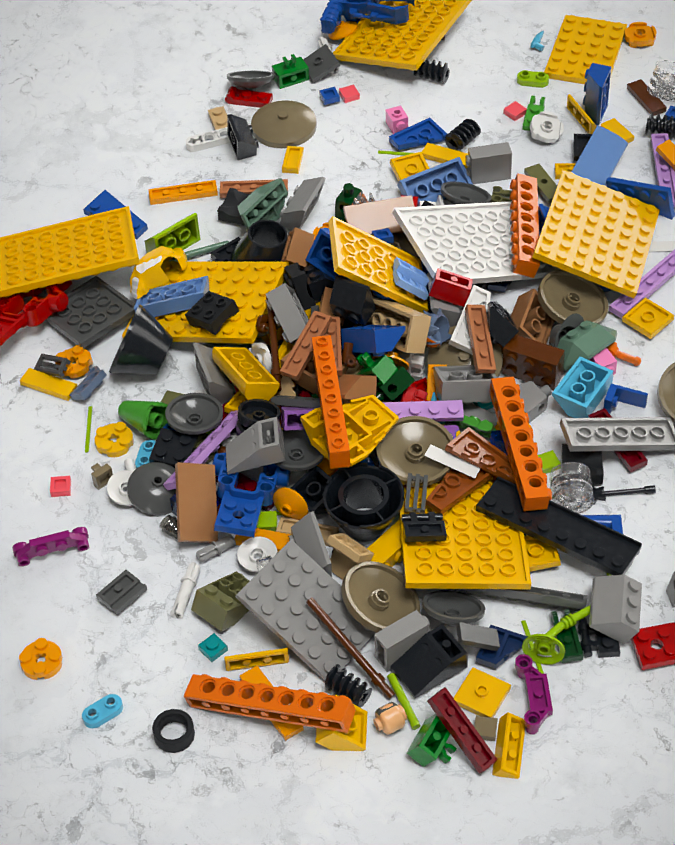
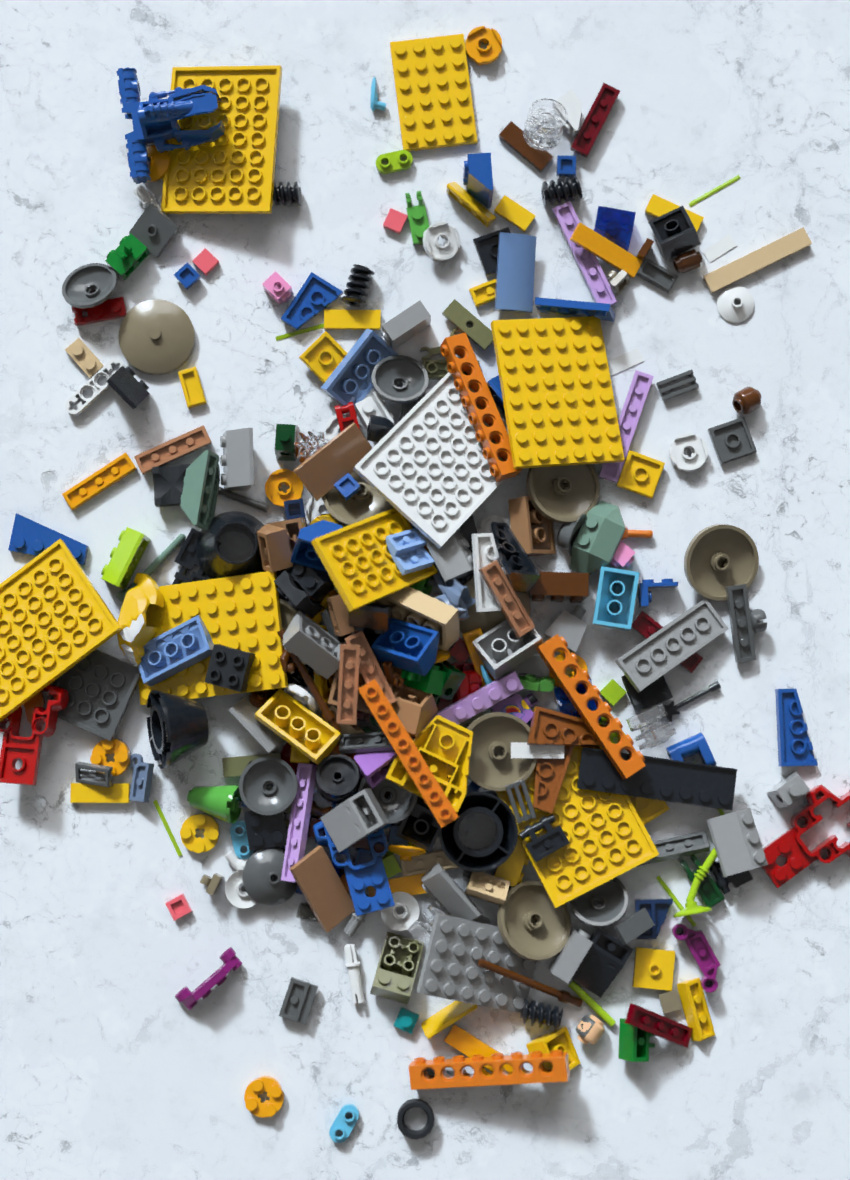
camera: 30 degrees left, 35 degrees up
(450, 287) = (455, 552): red brick -> none

